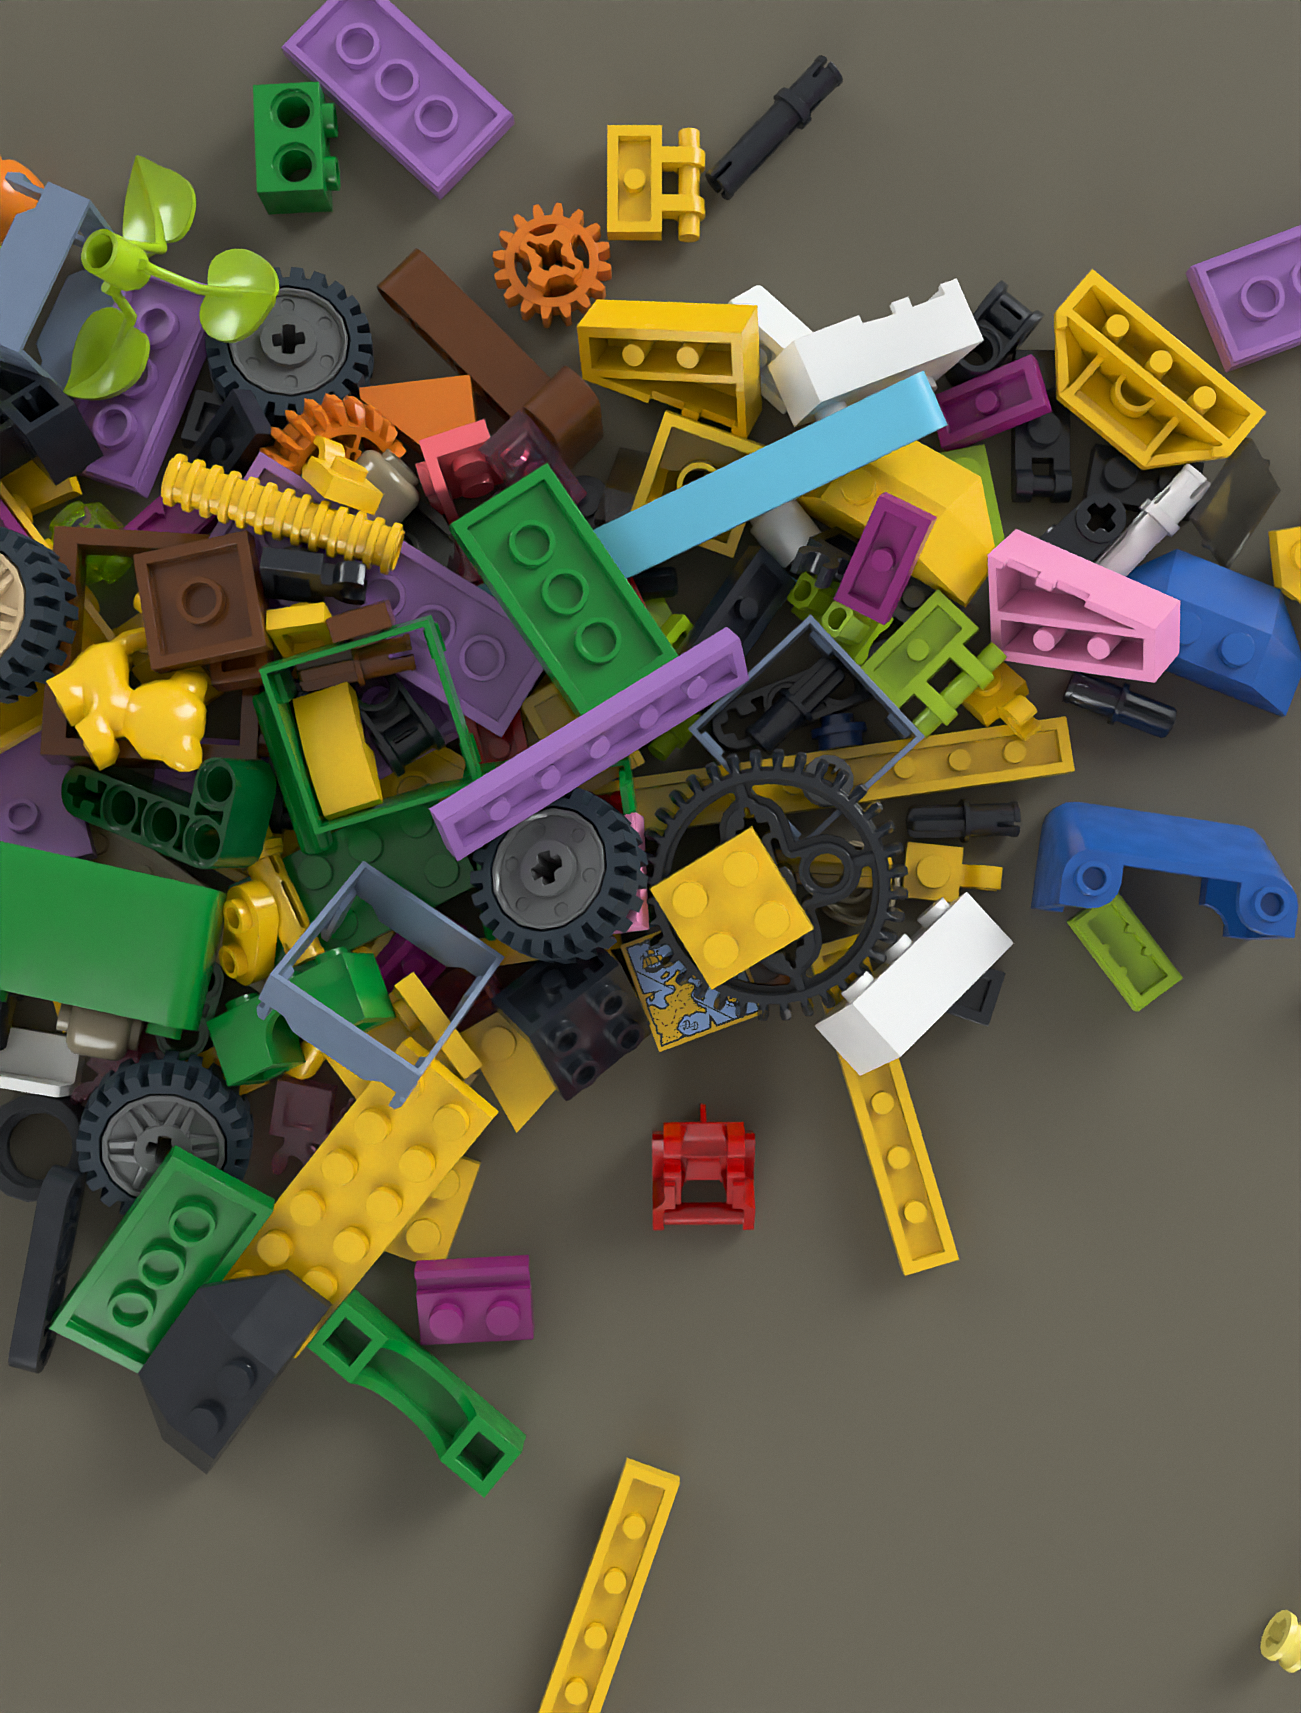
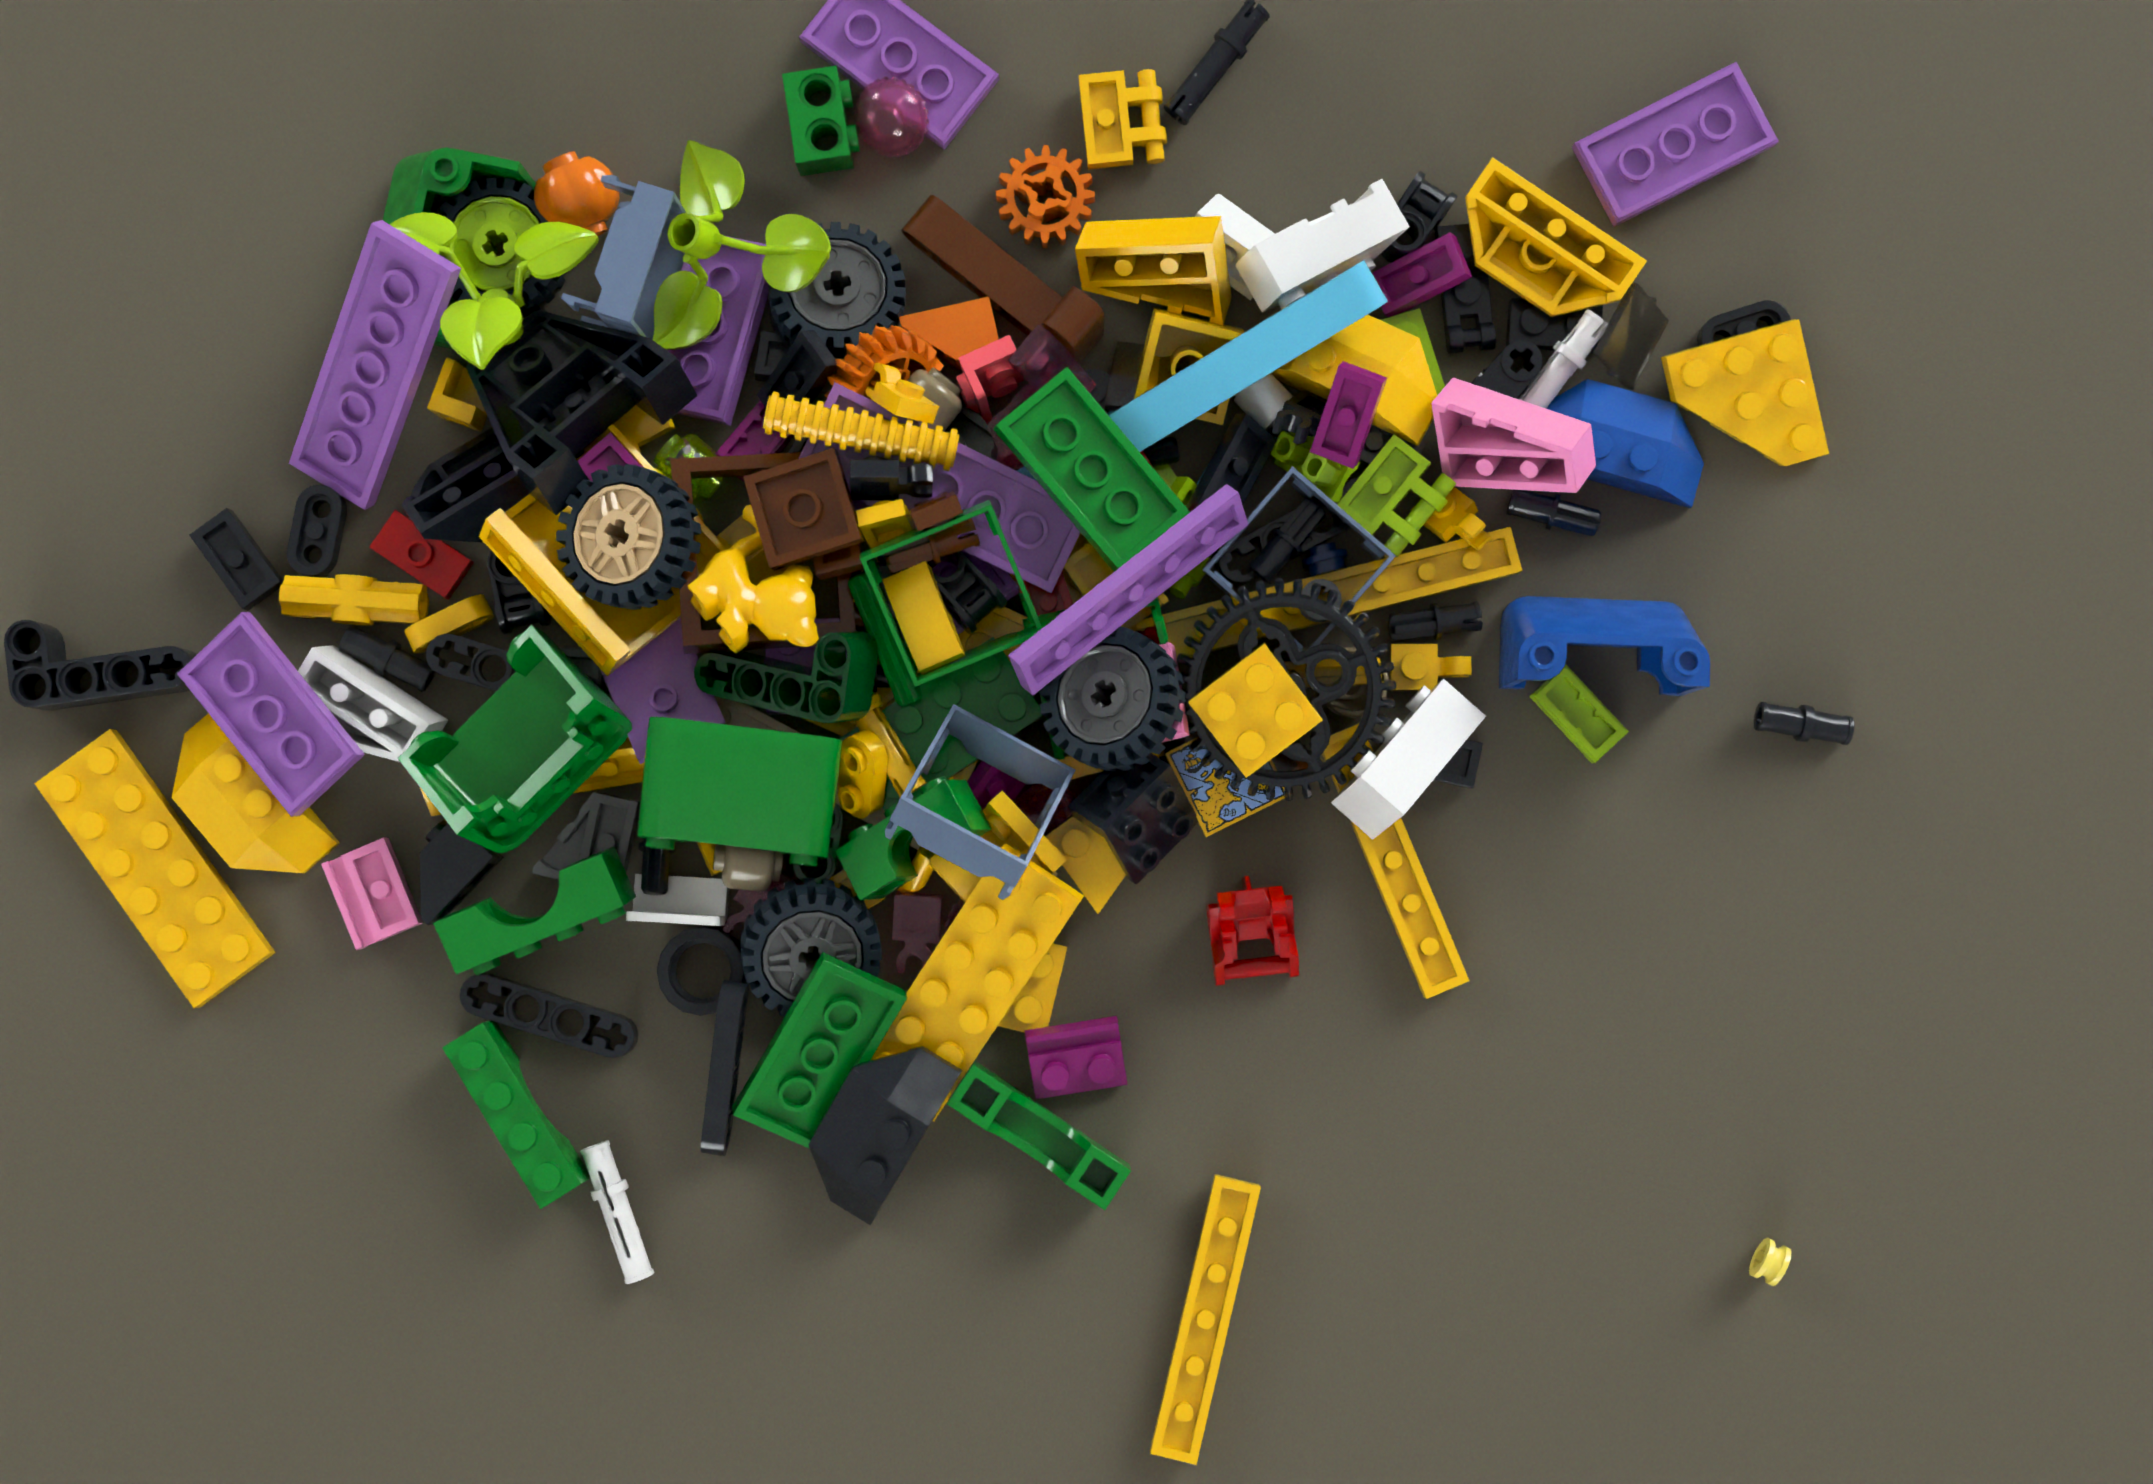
camera: 10 degrees left, 0 degrees up
(380, 152) = (892, 117): none -> clear pink hat

